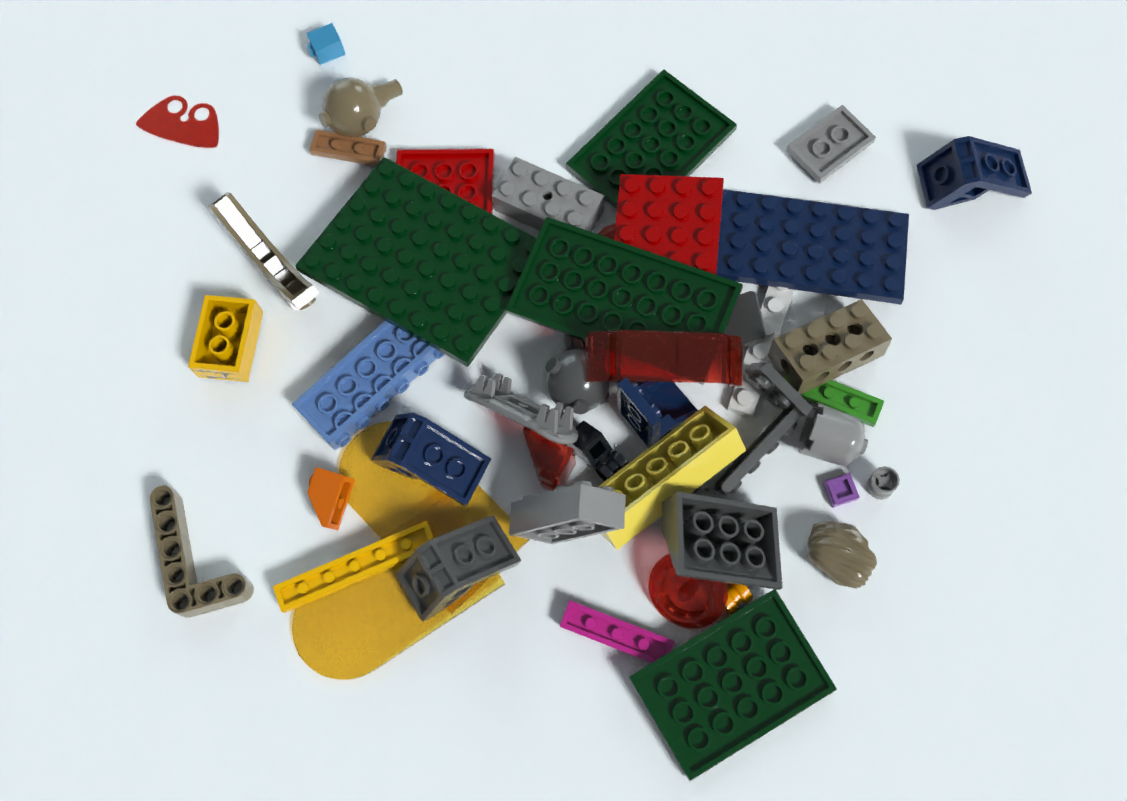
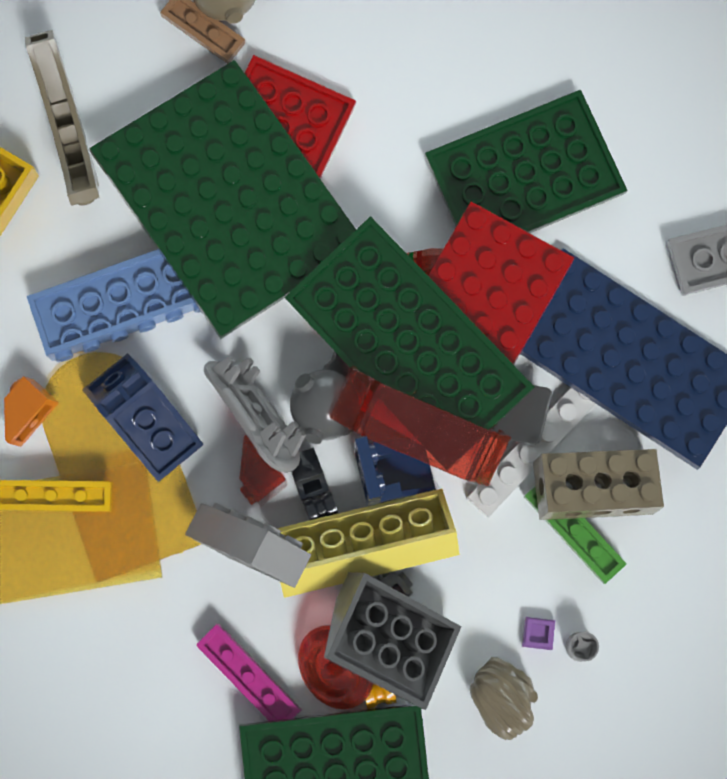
camera: 10 degrees right, 10 degrees up
(453, 564) = (121, 540): dark grey bracket -> none
(535, 193) = (367, 166): light grey brick -> none
(780, 395) = (489, 551): dark grey bracket -> none
(833, 436) = (555, 578): light grey cylinder -> none

